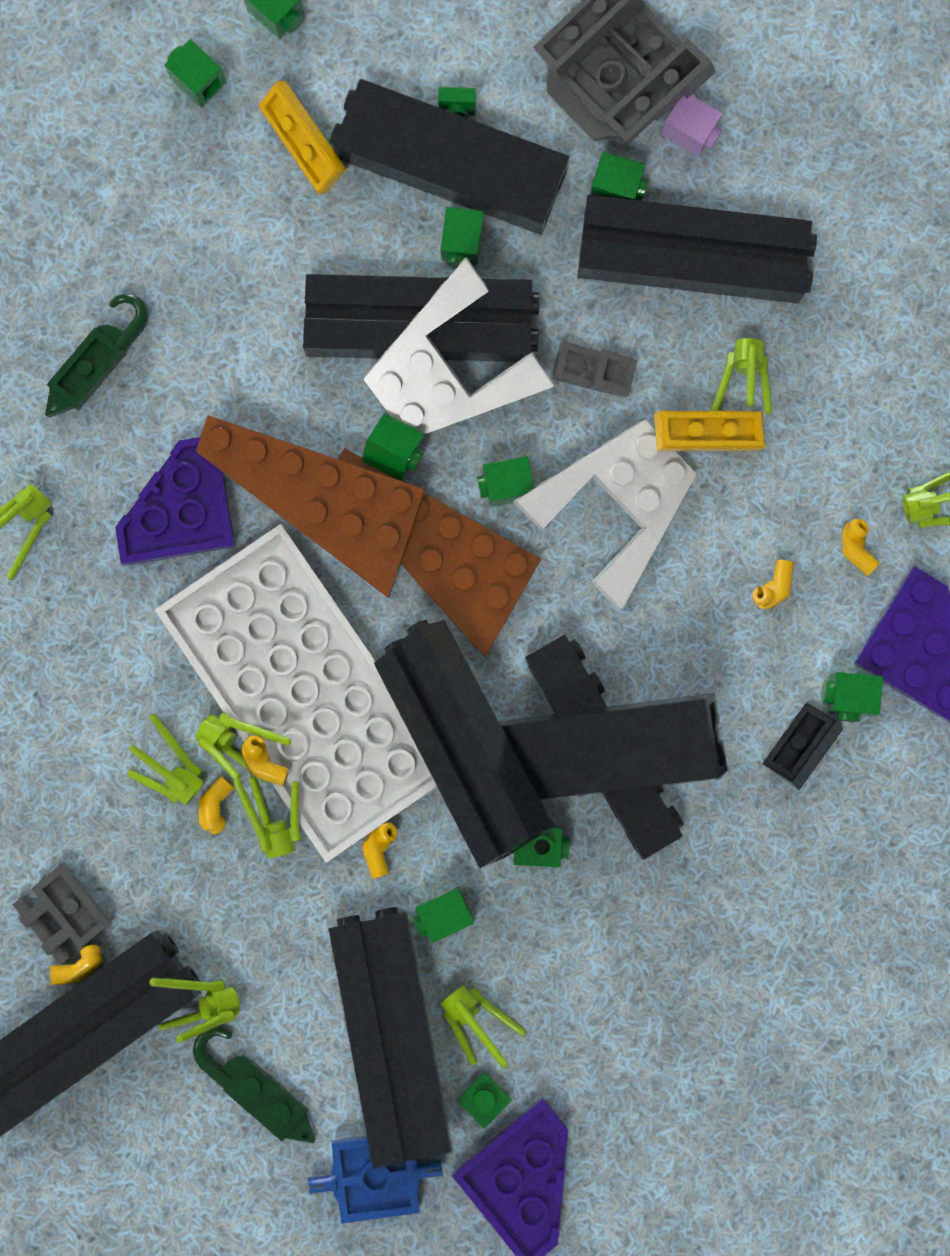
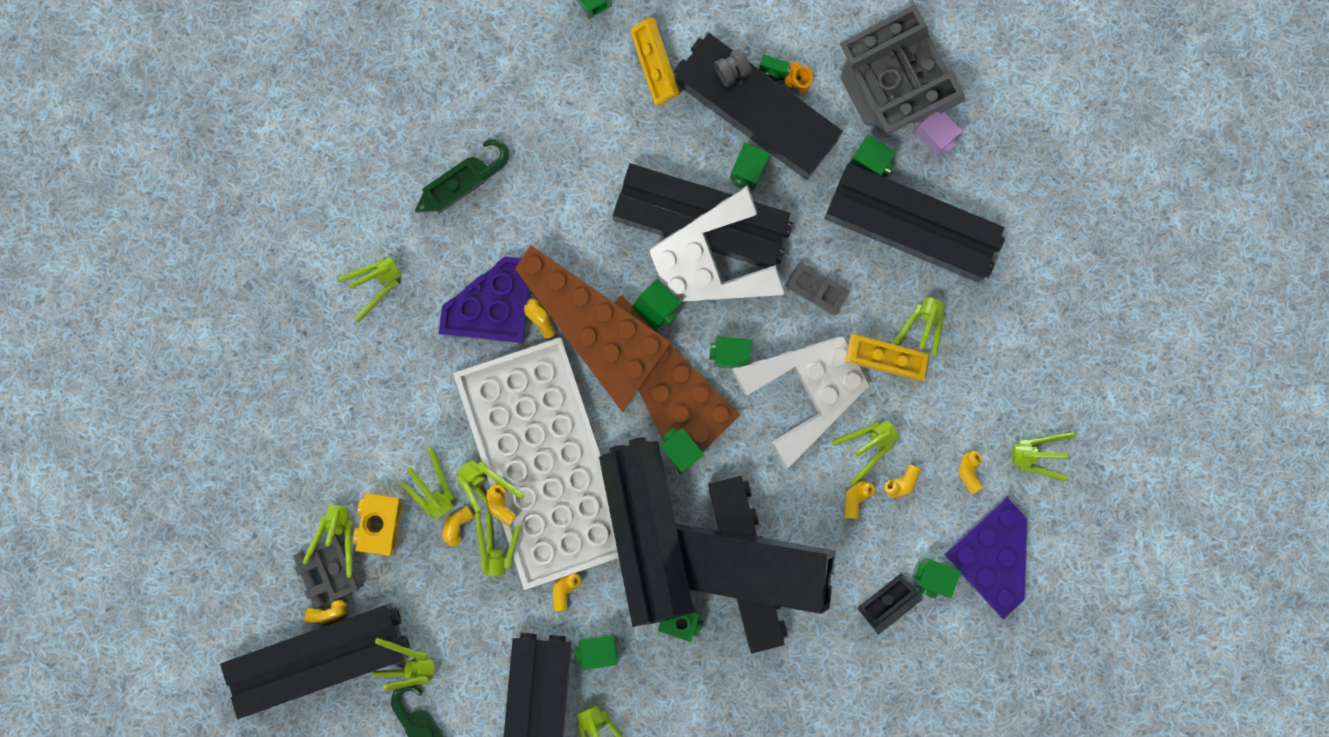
camera: 10 degrees right, 0 degrees up
(54, 847) = (335, 523): none -> lime plant
(128, 848) = (385, 540): none -> yellow brick
(246, 506) = (539, 317): none -> yellow arm
(404, 113) = (732, 67): none -> flat silver wheel
(477, 623) = (681, 449): none -> green brick
(497, 97) = (805, 74): none -> light orange plate
(719, 621) = (855, 496): none -> yellow arm
(731, 535) = (882, 436): none -> lime plant

